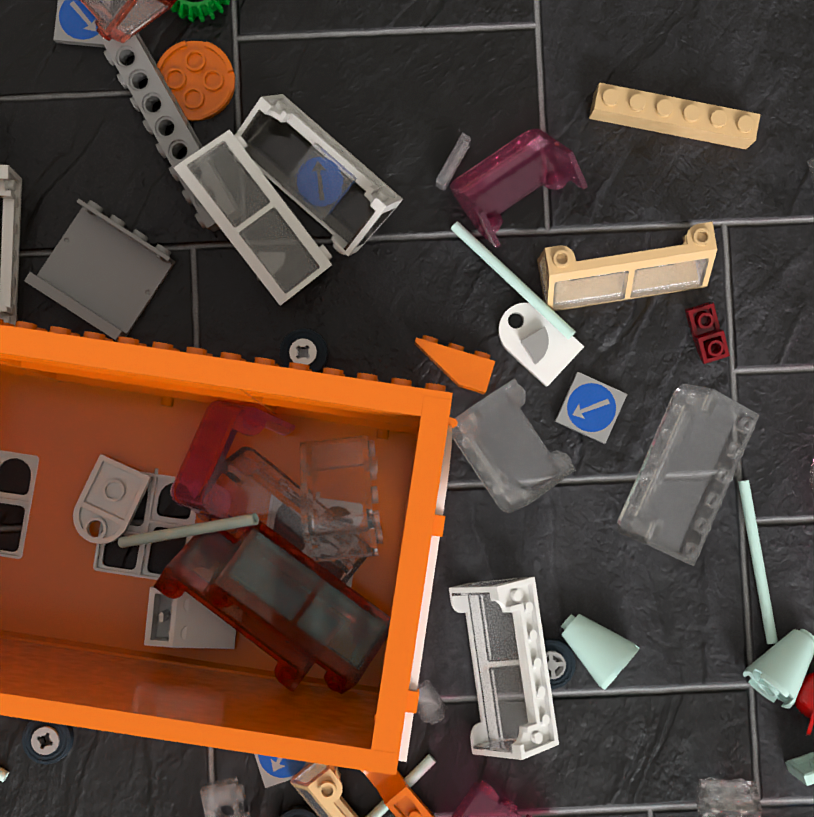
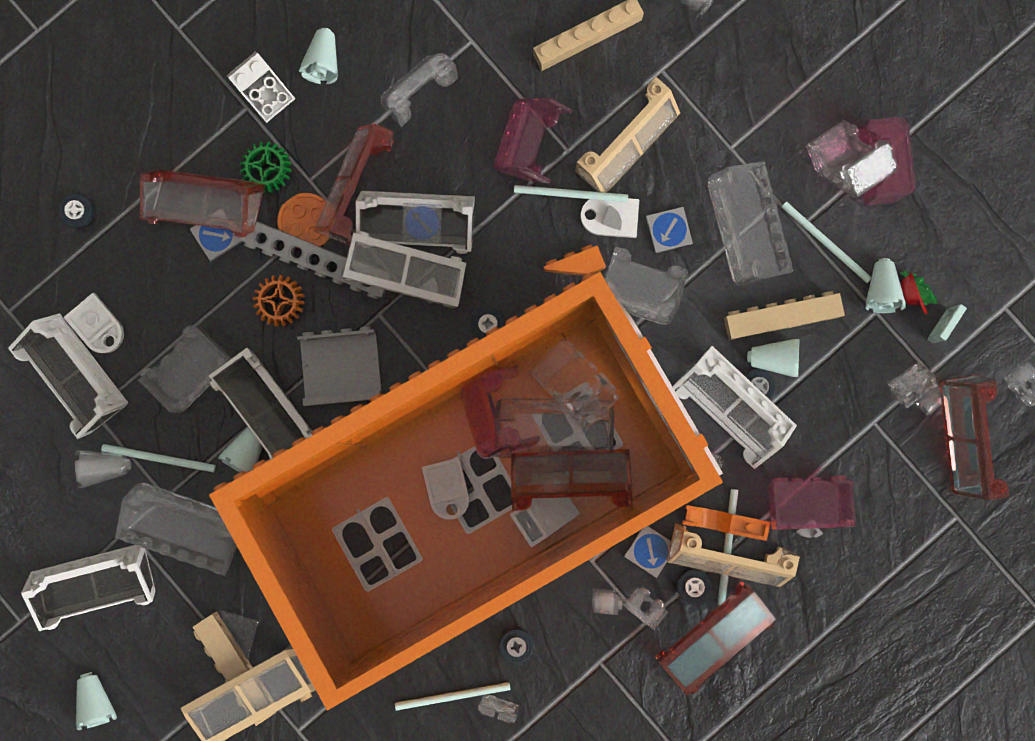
camera: 30 degrees left, 0 degrees up
(100, 135) = (262, 299): none -> orange gear
(185, 771) = (606, 601): none -> clear brick
(189, 530) = (506, 466): light aqua piece -> none
(300, 604) = (599, 456): windscreen -> none
(333, 42) = (366, 141): none -> clear red windscreen
(453, 161) = (486, 154): clear tile -> none
(471, 16) = (395, 99): none -> clear windscreen
(644, 608) = (783, 316): none -> tan brick
(706, 332) = (699, 138): dark red slope -> none

